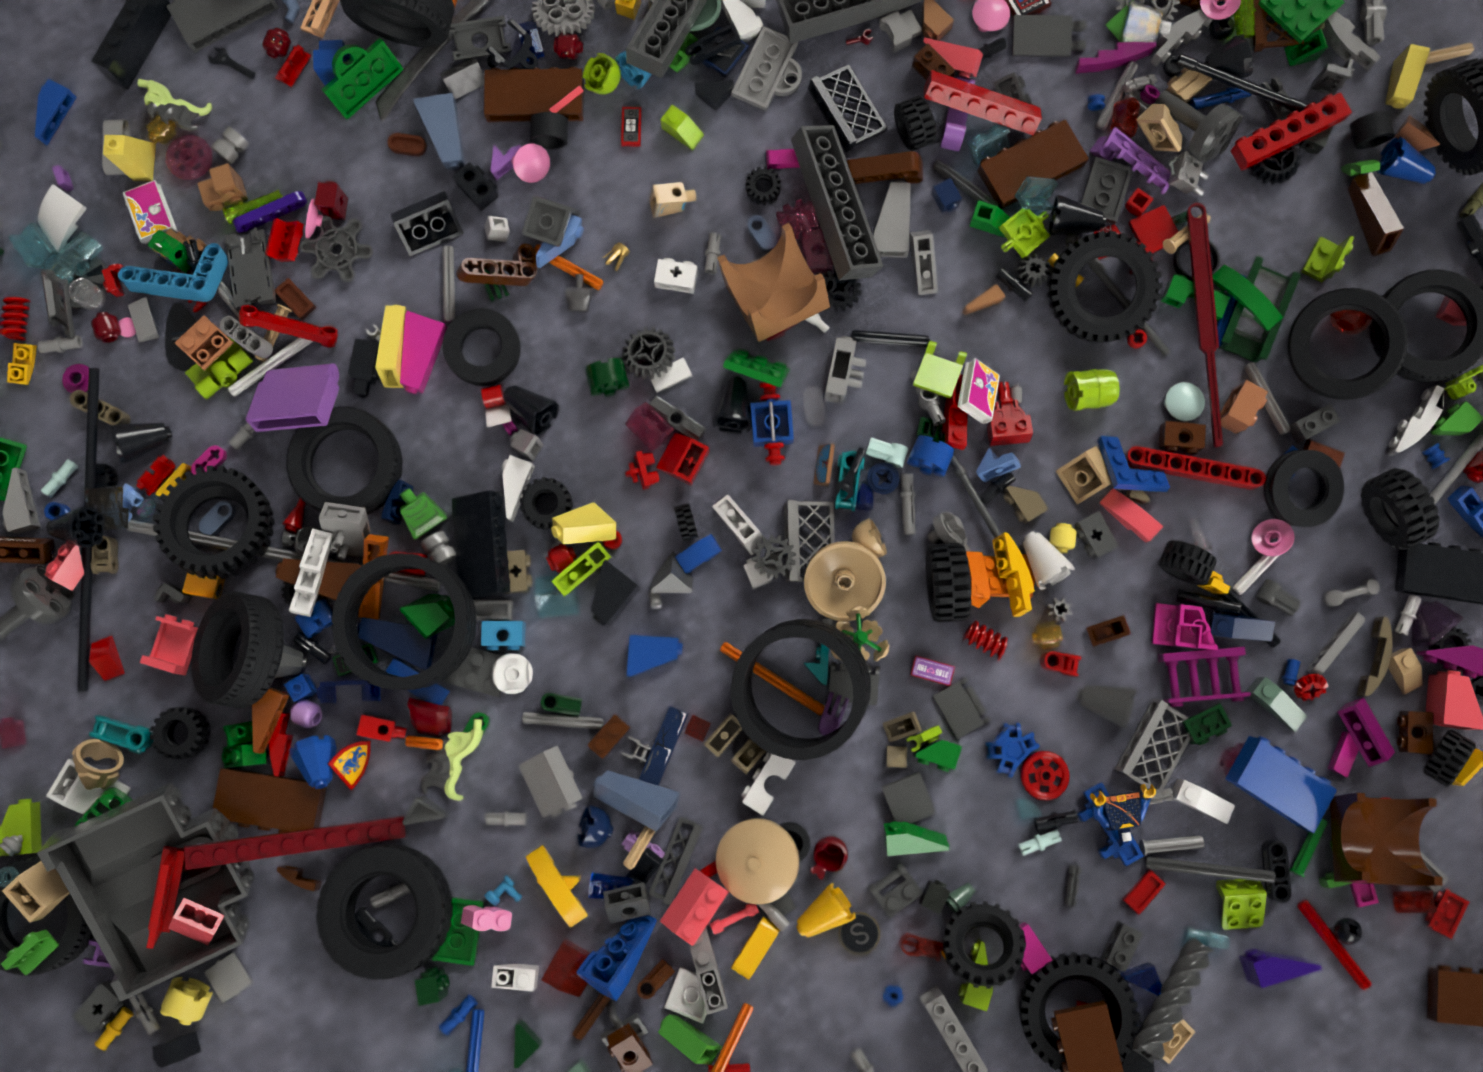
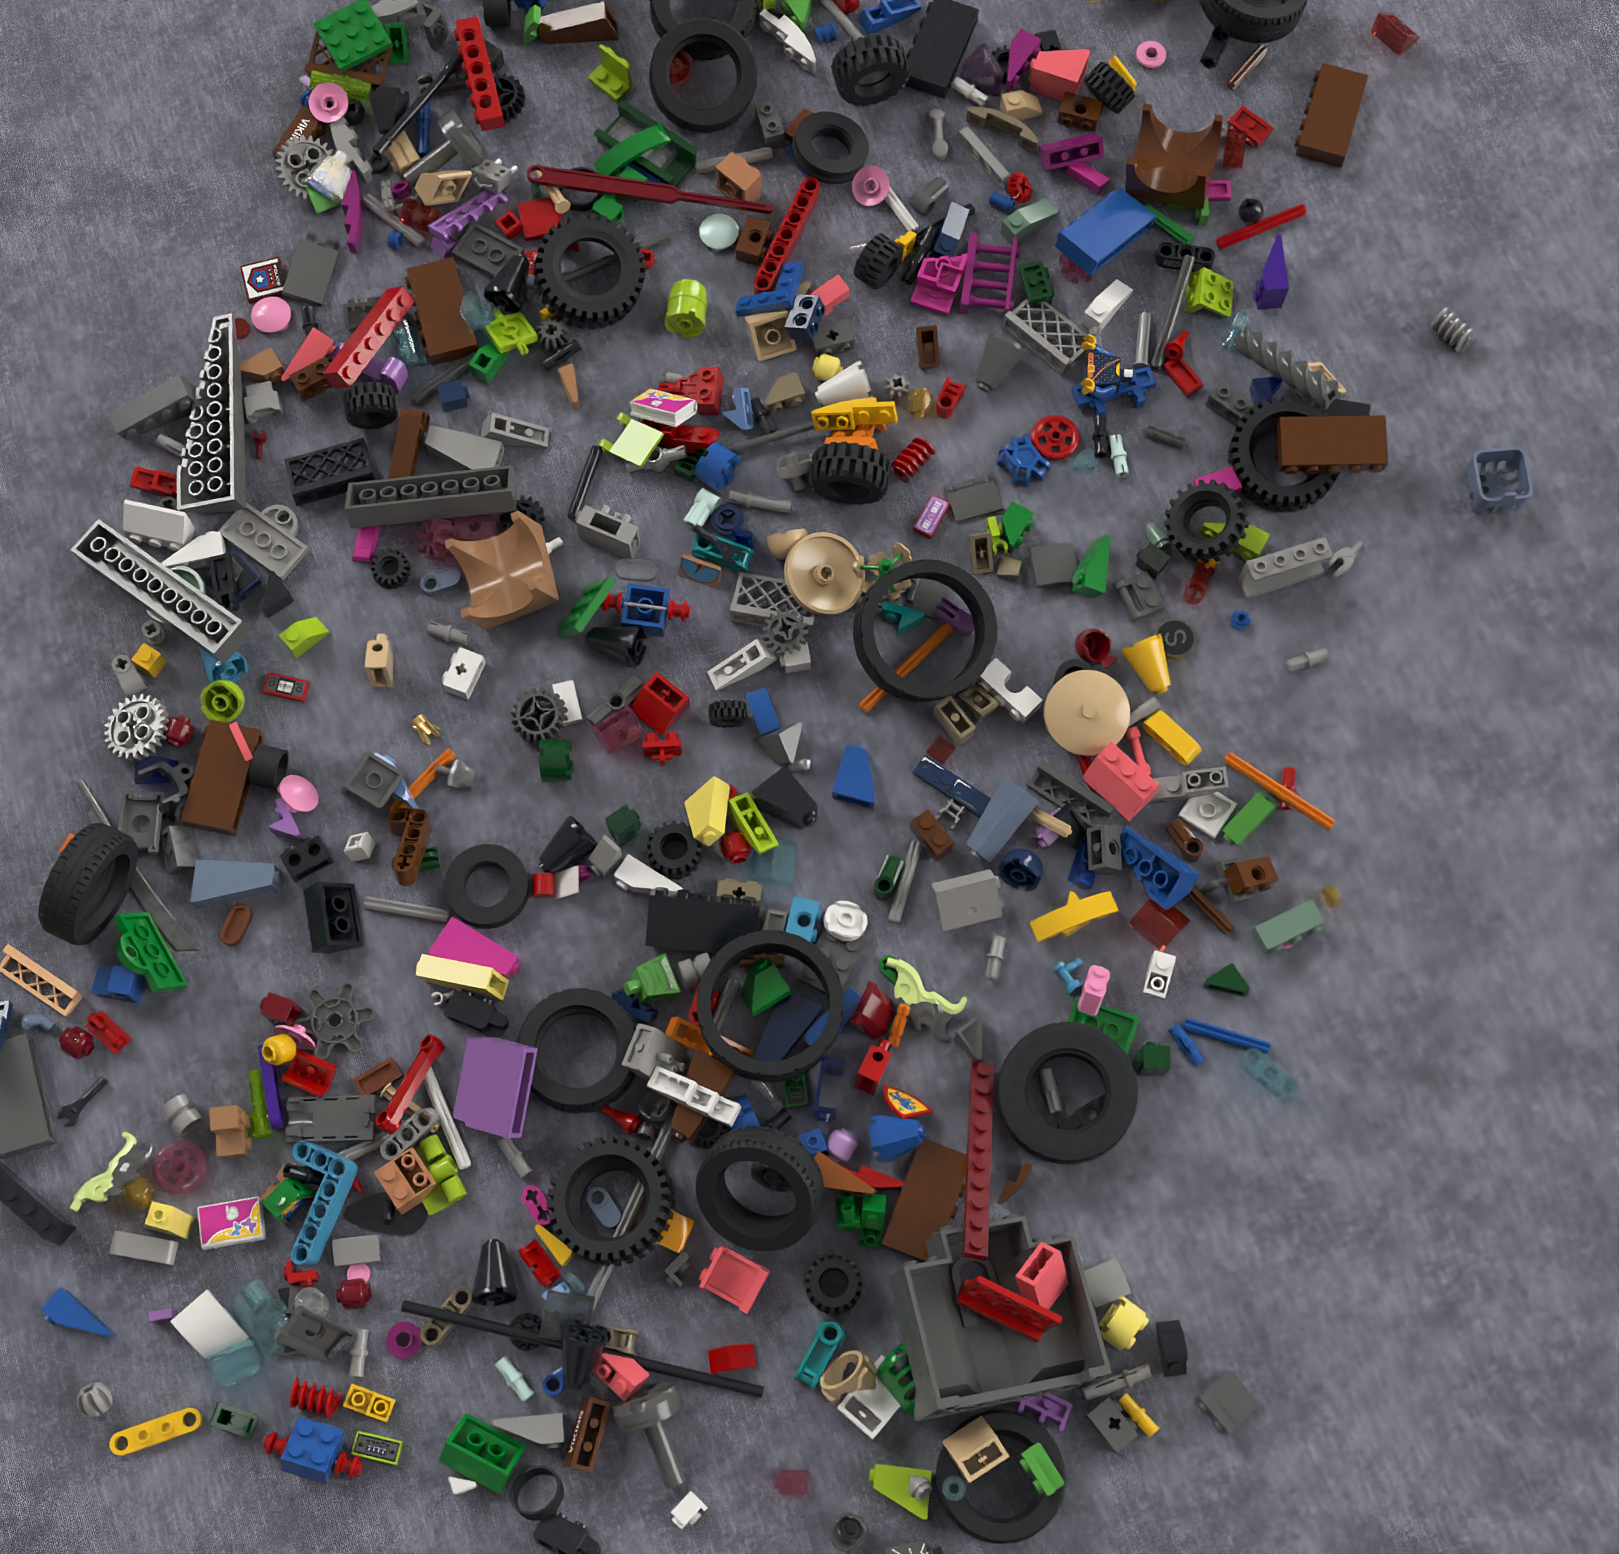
camera: 80 degrees left, 10 degrees down
(294, 207) = (279, 1049): none -> yellow head
(557, 452) = (623, 825): none -> clear green brick
(1107, 501) = (804, 317): none -> dark blue brick
(1169, 880) = (1175, 349): none -> red cone

